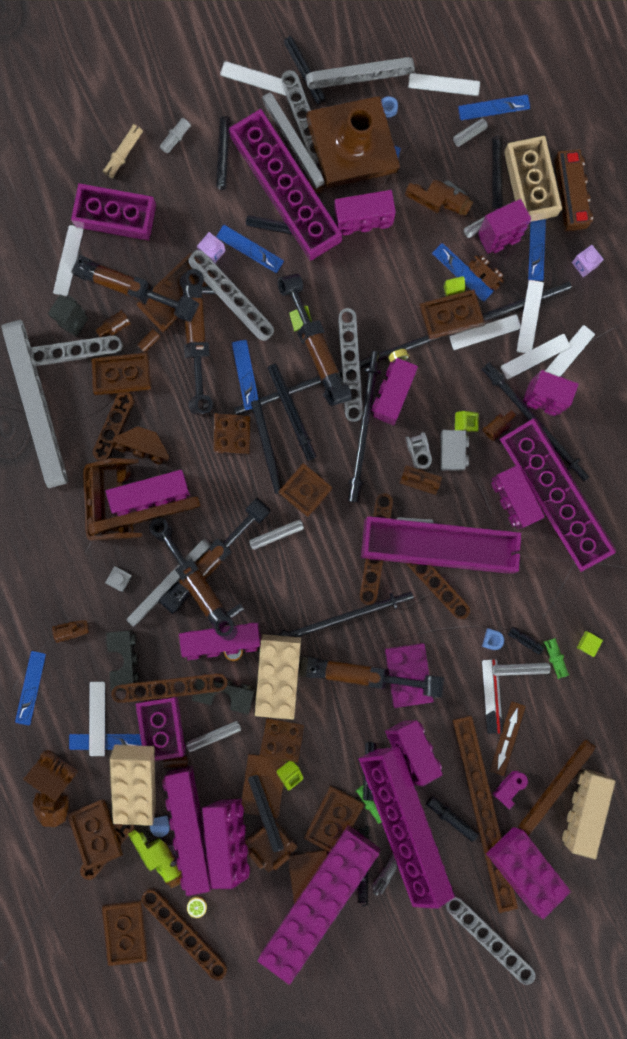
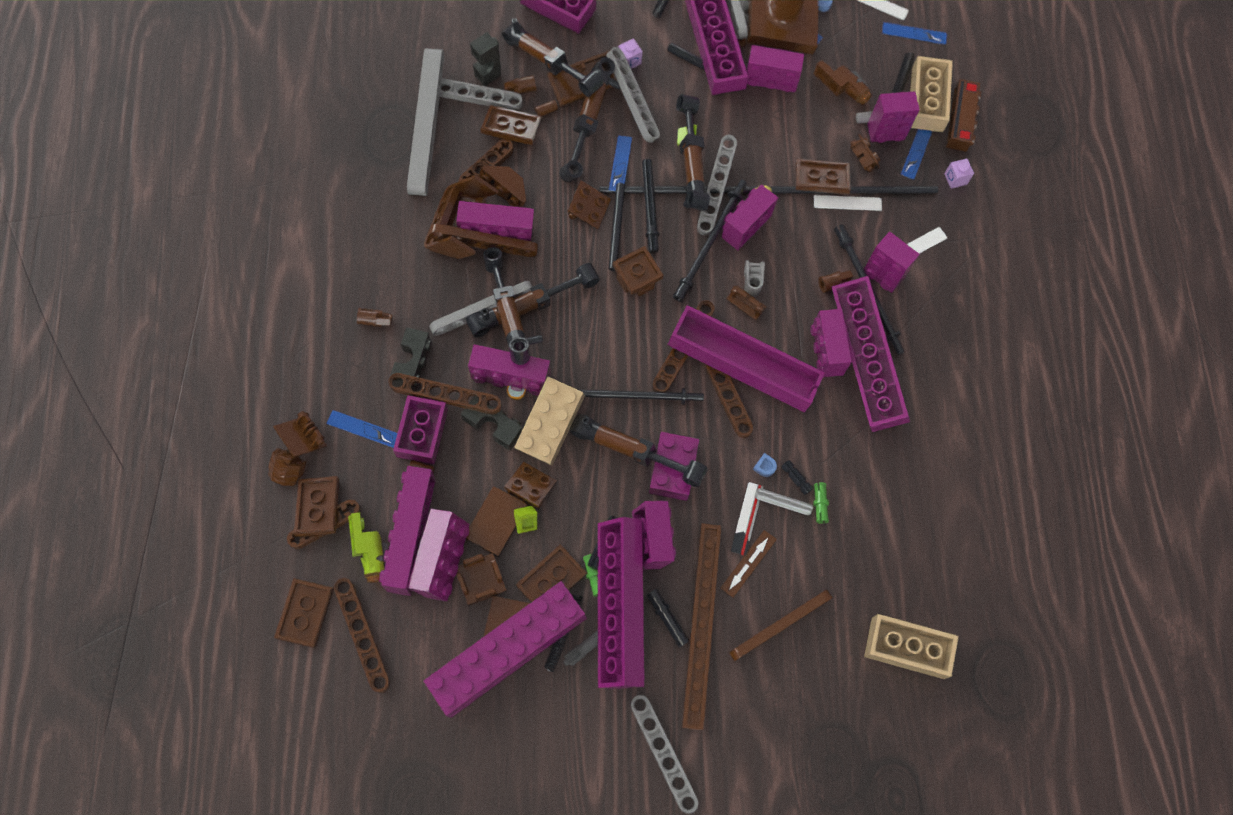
camera: 10 degrees right, 15 degrees down
(30, 688) = (314, 357): blue sticker -> none
(68, 260) = (513, 12): white sticker -> none
(97, 719) = (364, 405): white sticker -> none
(118, 579) = (437, 290): light grey plate -> none
(133, 784) = (373, 467): tan brick -> none
(160, 826) = (382, 522): medium blue tile -> none
(197, 907) = (384, 613): tile -> none
(213, 736) = (466, 458): light grey axle -> none
(250, 248) = (663, 69): blue sticker -> none
(266, 813) = (488, 562): black axle -> none
(276, 534) = (596, 303): light grey axle -> none
(453, 450) = (785, 286): light grey hinge -> none
(454, 286) = (833, 153): lime slope -> none
(459, 269) = (843, 148): blue sticker -> none
(467, 421) = (806, 268): lime slope -> none
(470, 132) = (887, 43): light grey axle -> none
(509, 787) = (731, 609): magenta leg -> none
(528, 872) = (726, 694): magenta brick -> none
(530, 316) = (892, 202): white sticker -> none
(535, 356) = (874, 238): white sticker -> none
(588, 813) = (806, 656): tan brick -> none
(589, 644) = (857, 502): lime slope -> none

